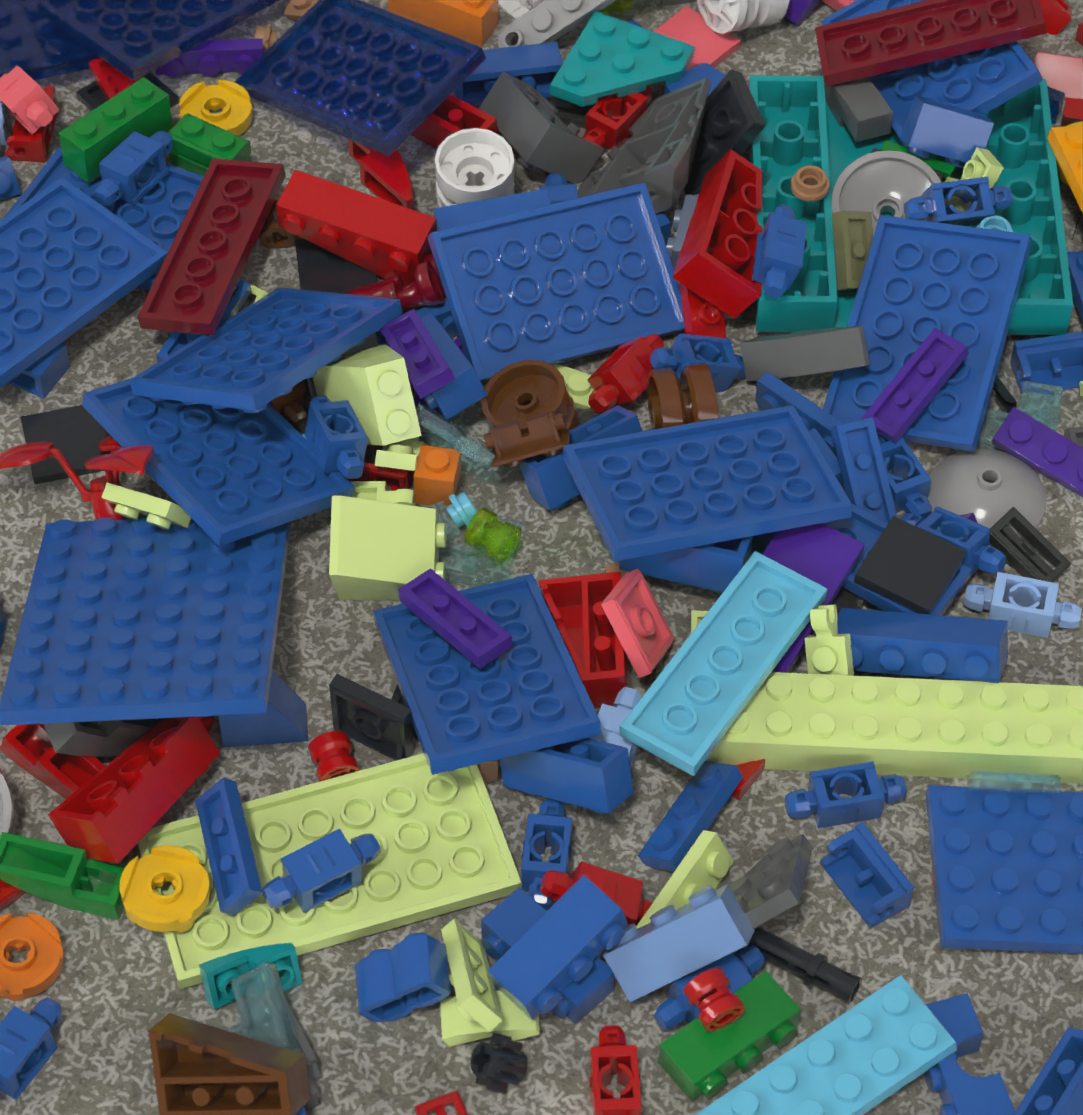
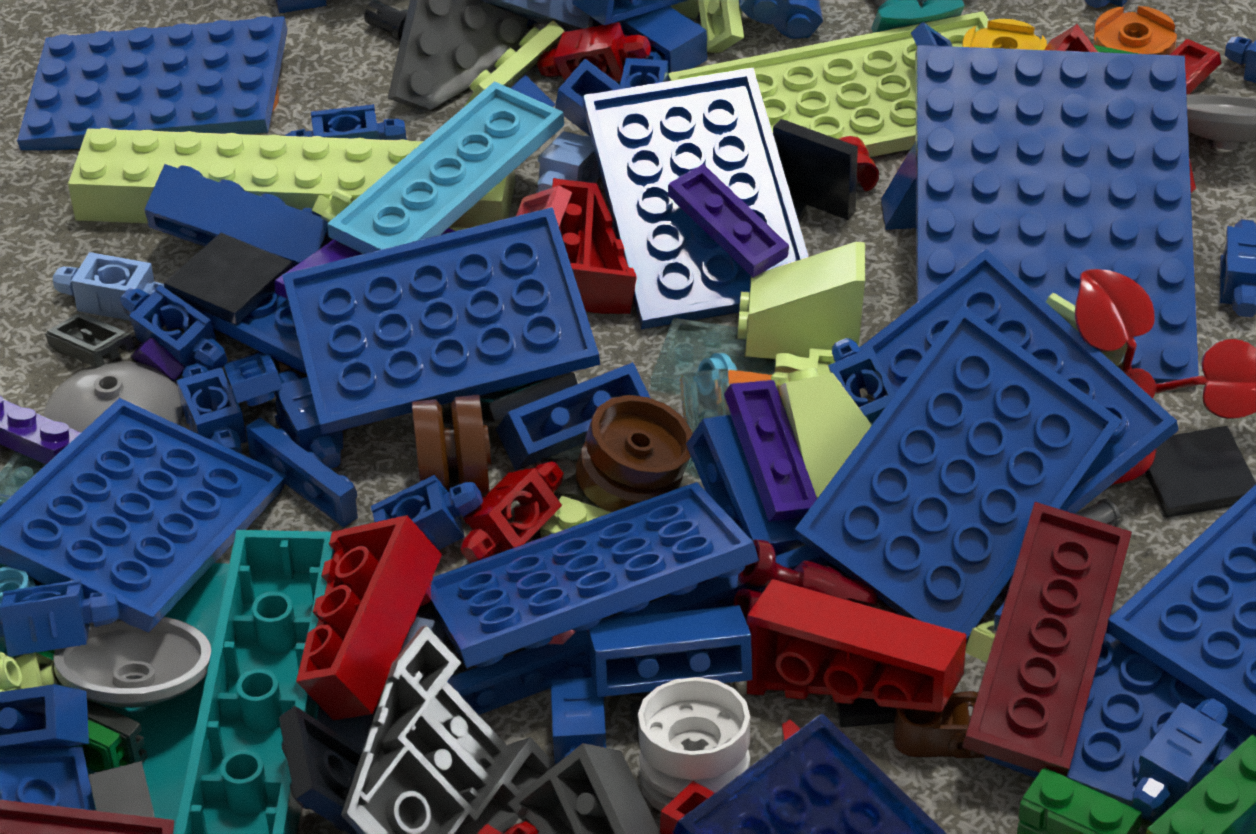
camera: 175 degrees left, 10 degrees down
(321, 870) = (856, 55): blue piece -> none
(493, 535) = (681, 333): clear neon green wheel -> none
(545, 437) = (620, 379): reddish brown hinge -> none
(779, 251) = (298, 552): blue piece -> none
(805, 352) = (285, 503): dark grey slope -> none
(810, 183) = (234, 661): medium nougat plate -> none
(851, 244) = (198, 603): olive plate -> none
(867, 876) = (335, 82): blue hinge -> none
(916, 384) = (166, 440): dark purple plate -> none
(1013, 782) = (176, 102): clear light blue tile -> none

